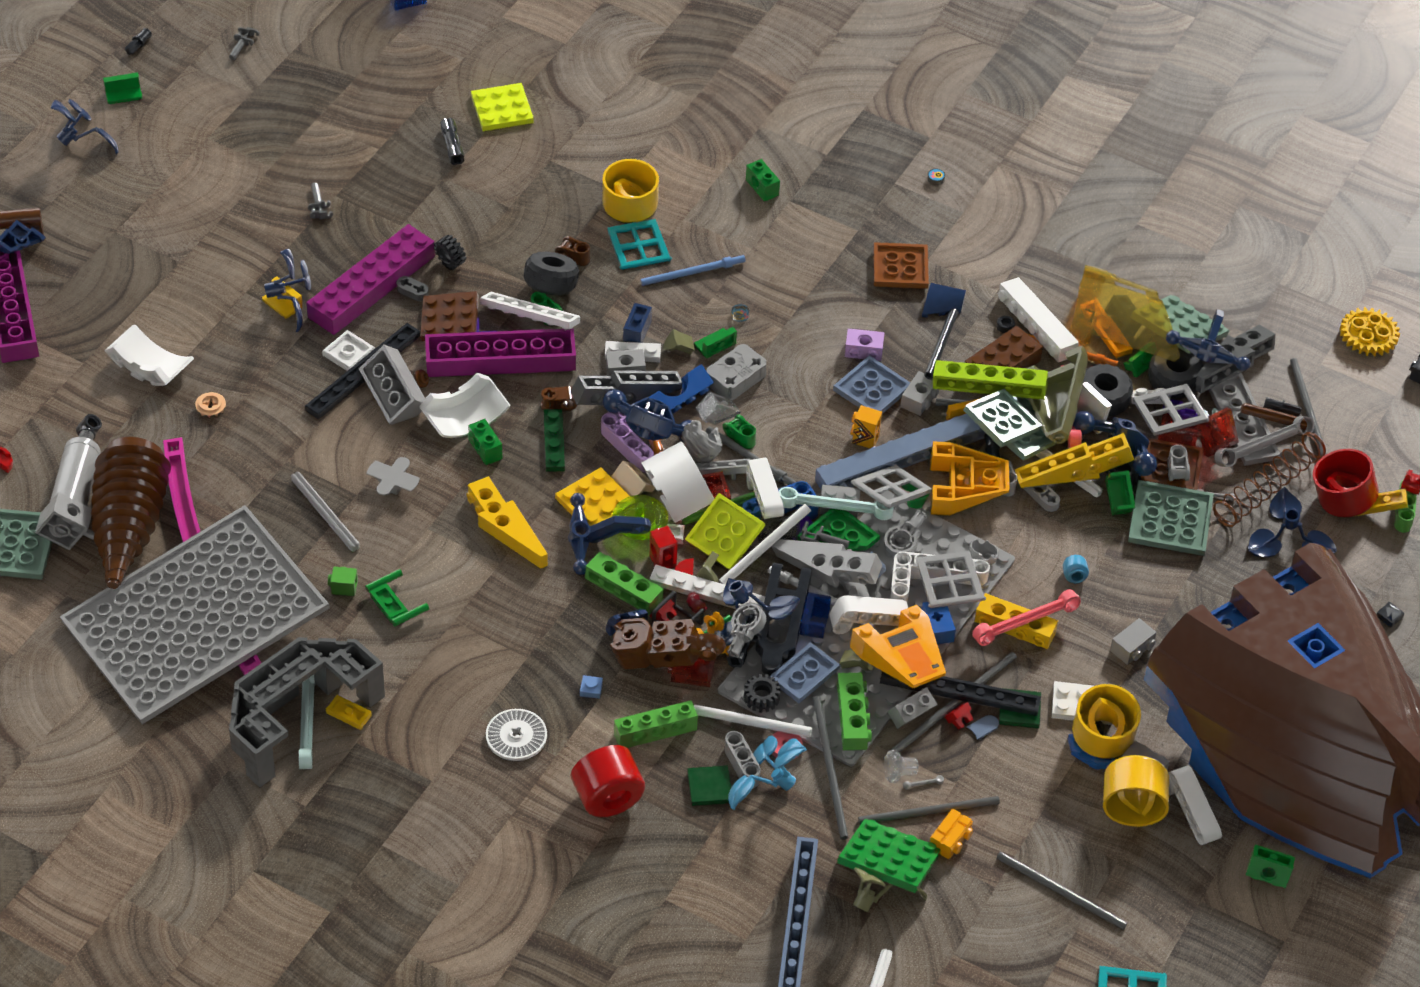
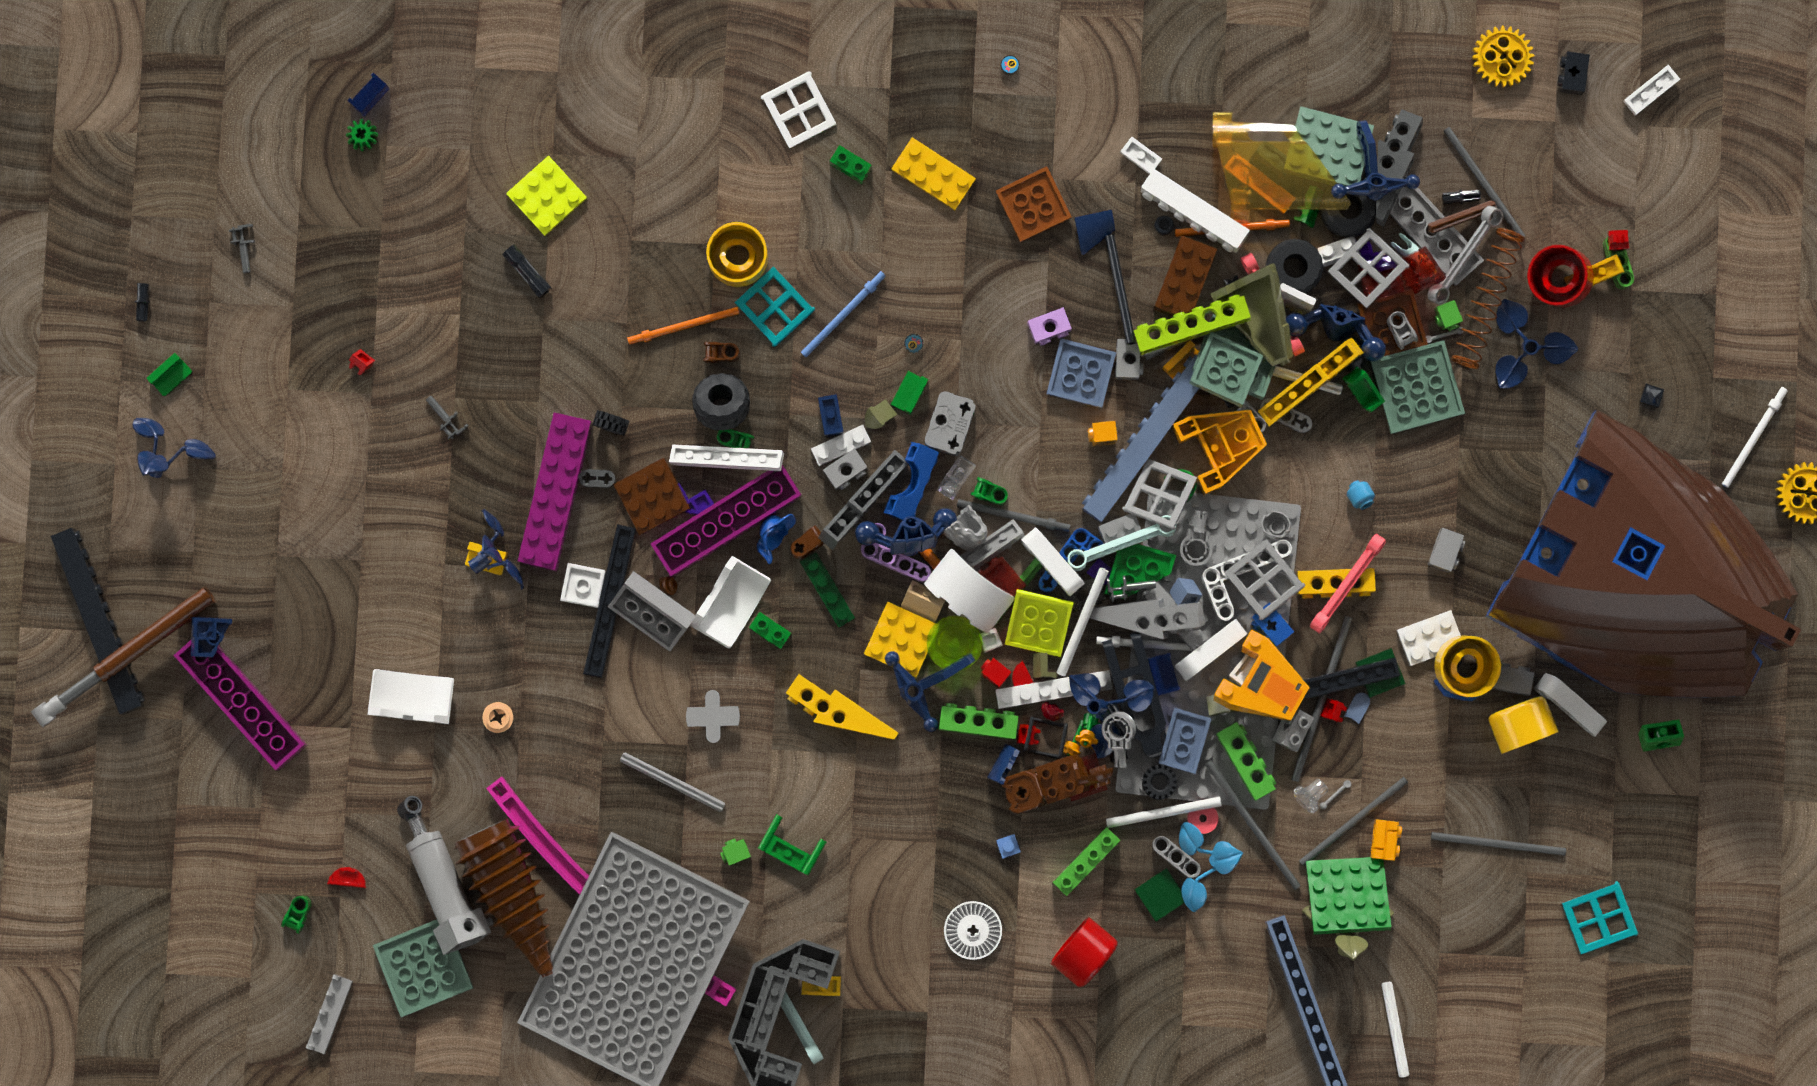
camera: 25 degrees left, 35 degrees up
(277, 141) = (361, 360): none -> red tile
(384, 14) = (355, 136): none -> green gear
(519, 218) = (647, 335): none -> orange bar
(536, 377) = (772, 533): none -> blue hair
(763, 137) = (798, 110): none -> white window
(828, 216) = (933, 174): none -> yellow plate
(1011, 269) = (1140, 155): none -> white plate
(1226, 478) = (1448, 316): none -> bright green brick

